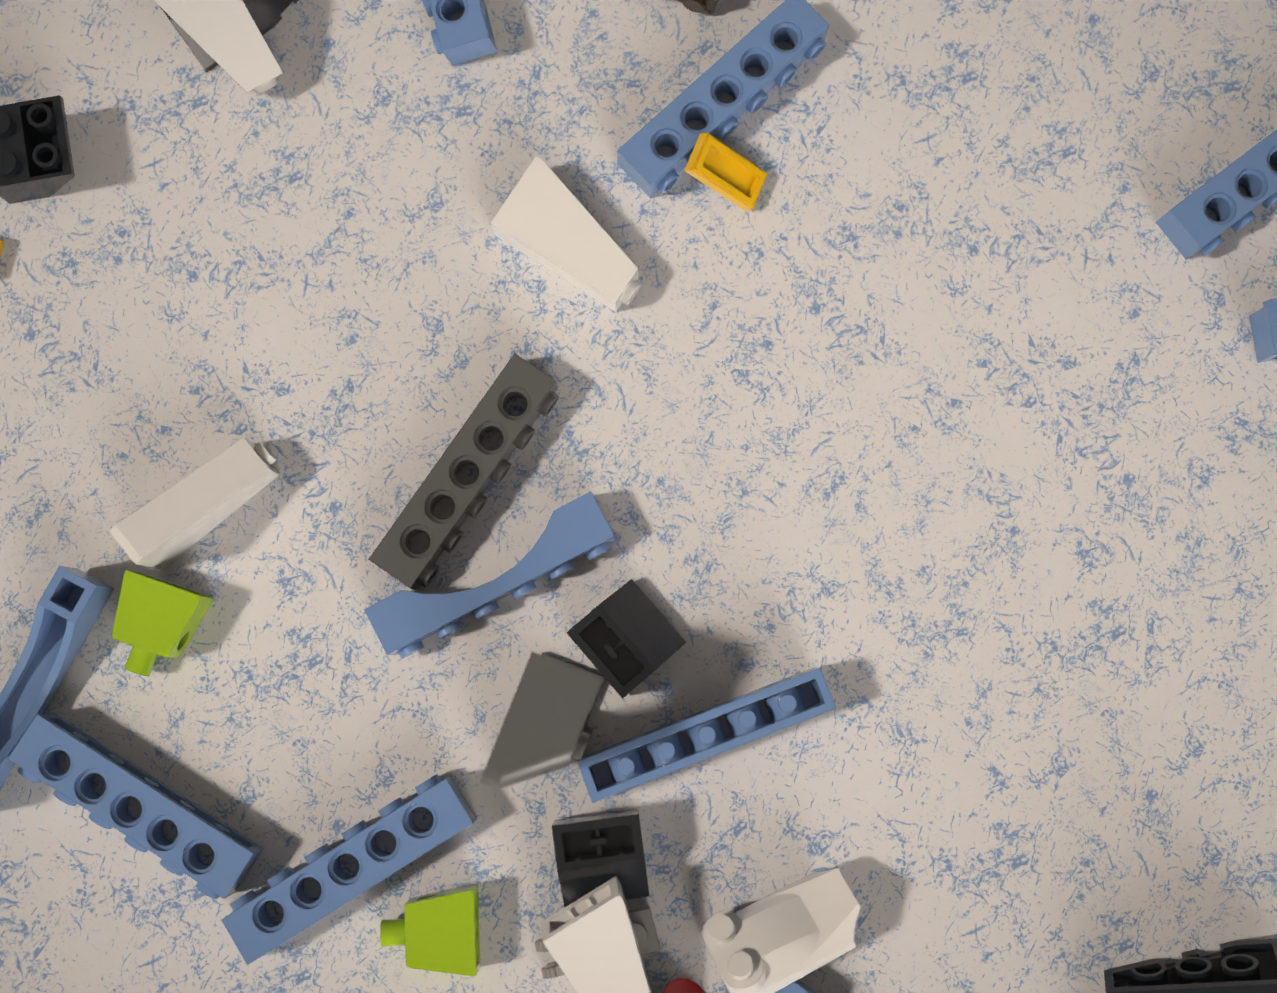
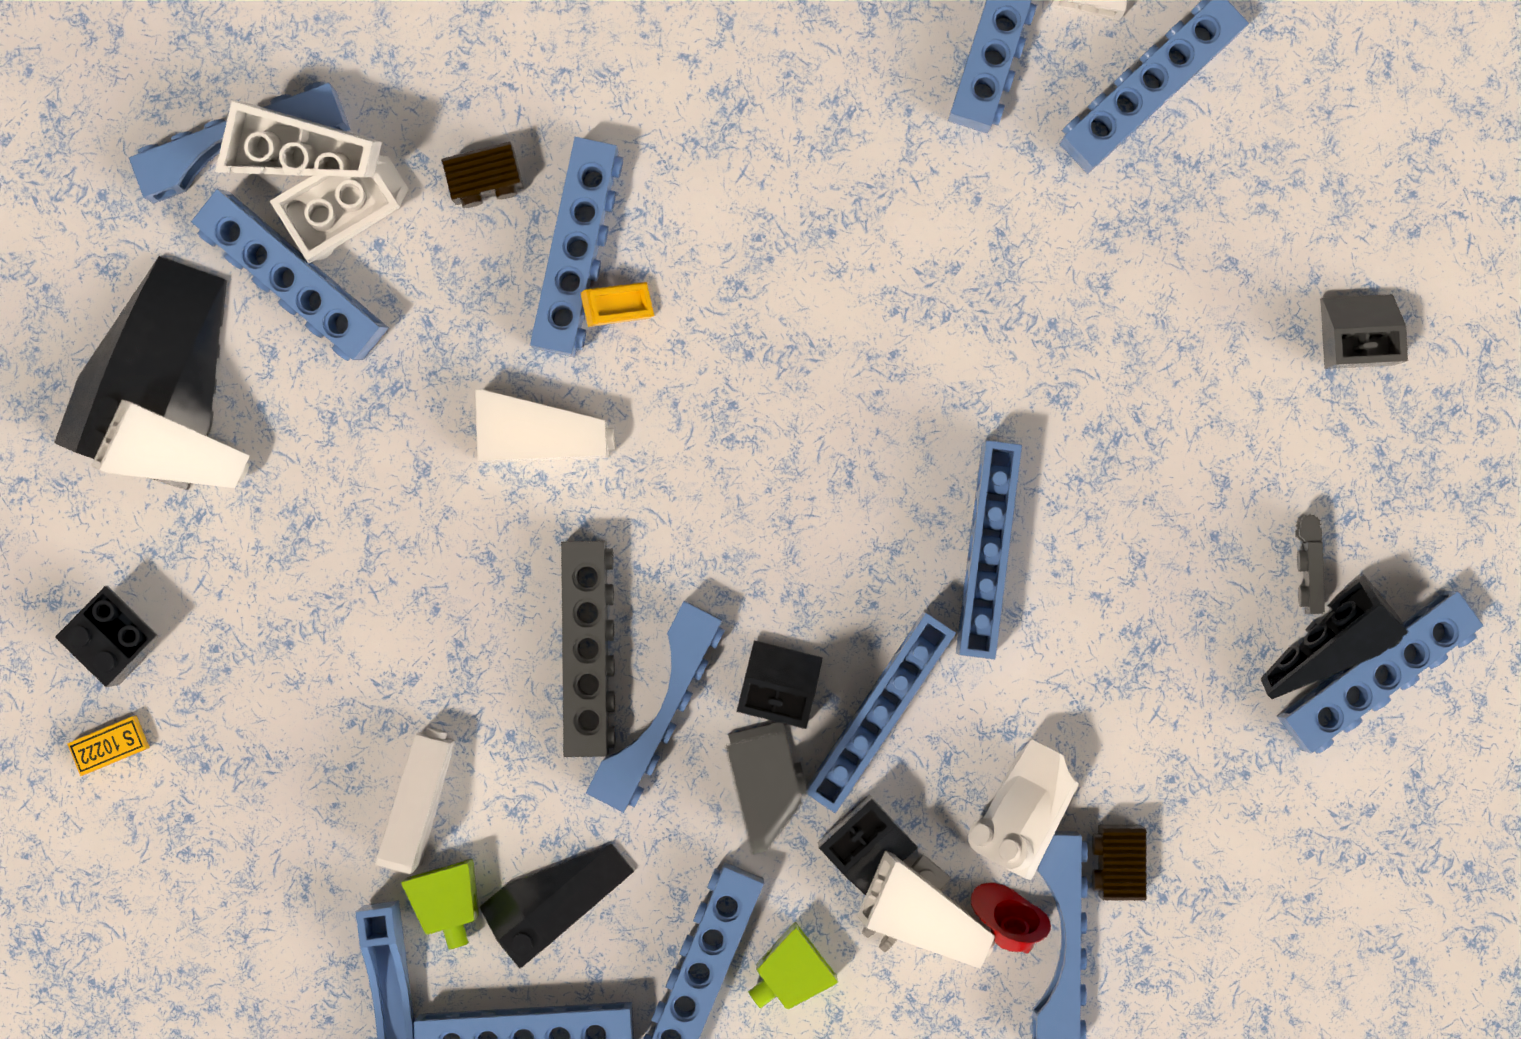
camera: 30 degrees left, 5 degrees up
(248, 691) = (544, 905): none -> black wedge
(922, 650) = (988, 549): none -> medium blue brick
(1235, 891) = (1311, 564): none -> dark grey hinge

